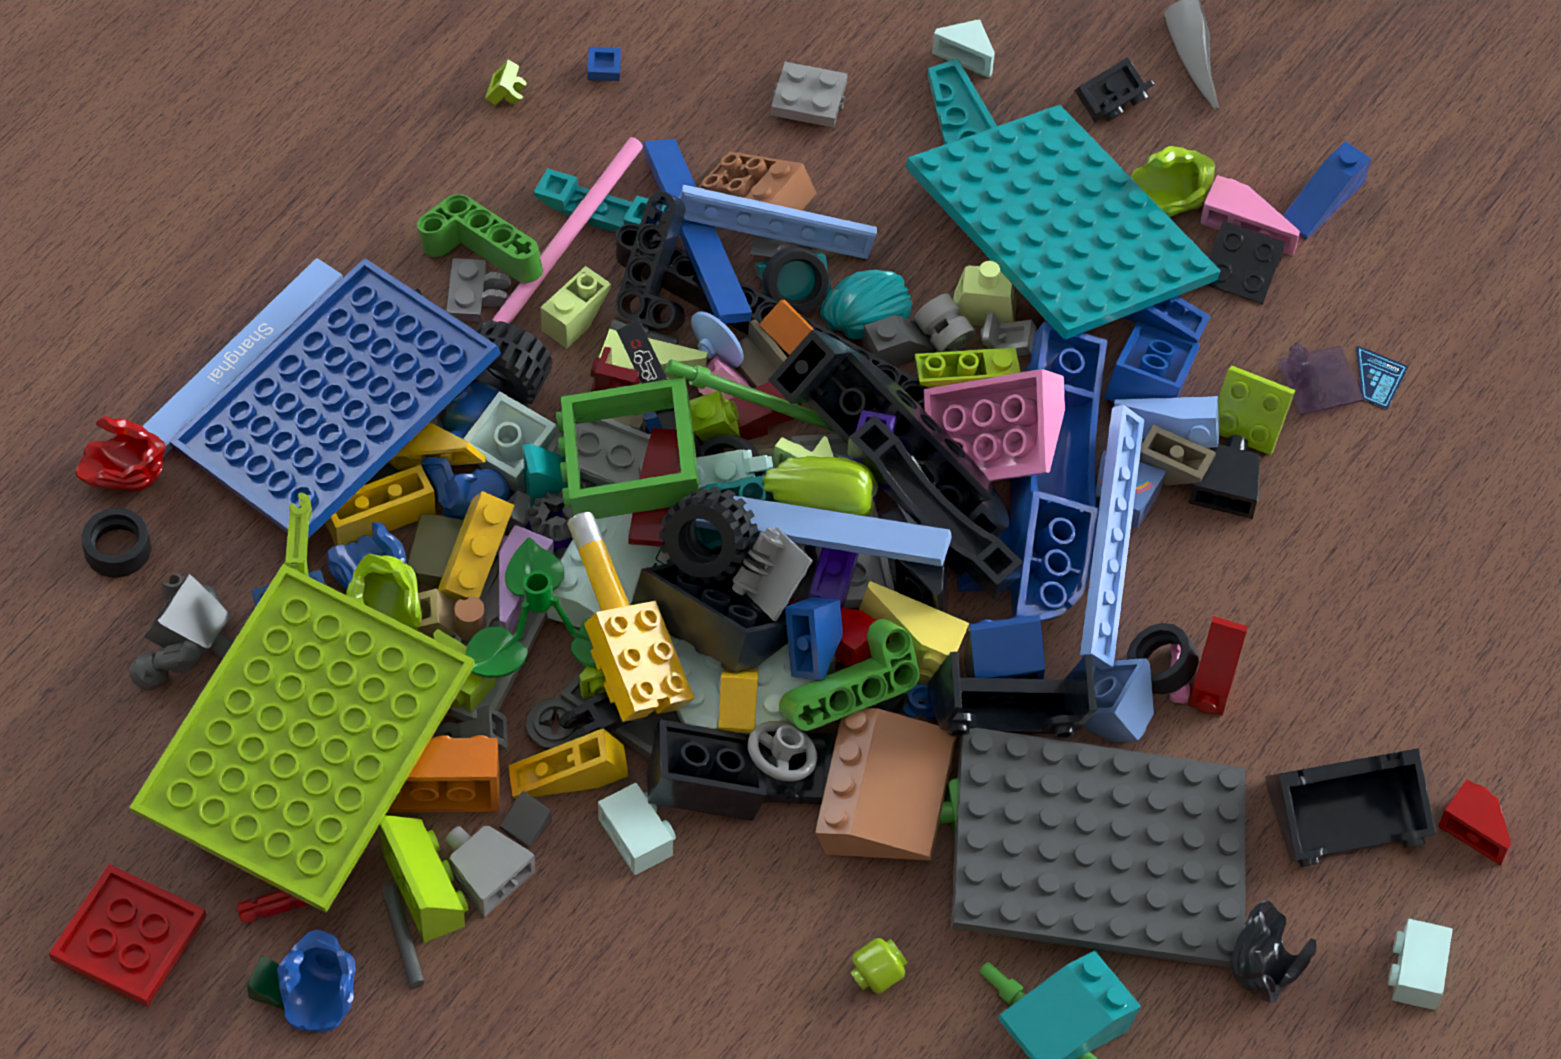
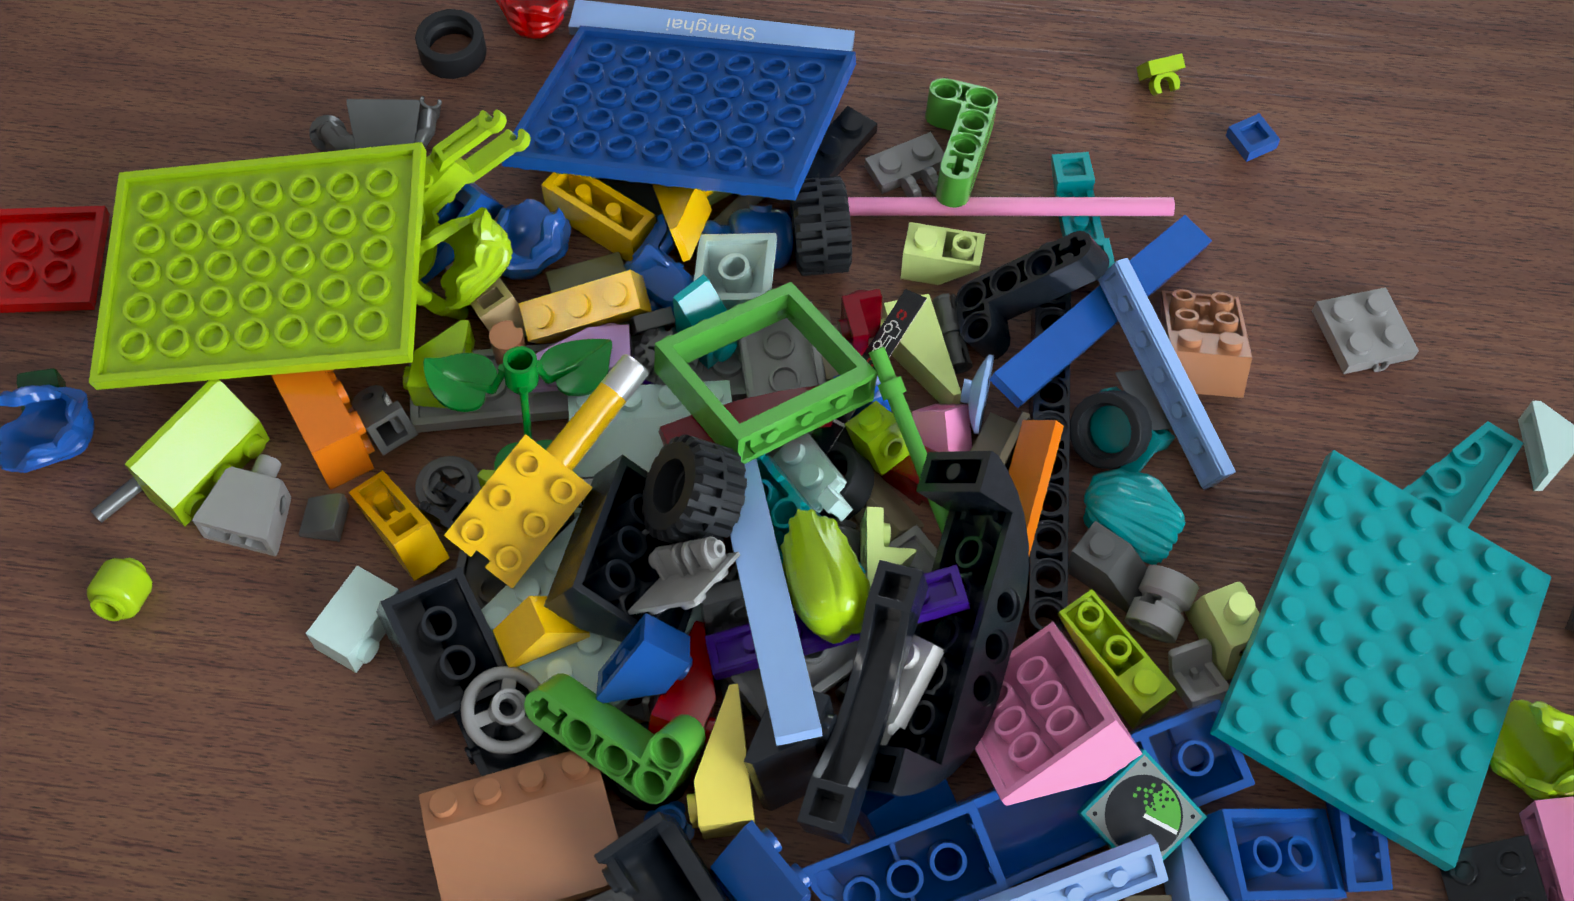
camera: 65 degrees right, 5 degrees up
(503, 982) = (119, 589): none -> lime head
(1089, 410) = (1139, 803): none -> tile

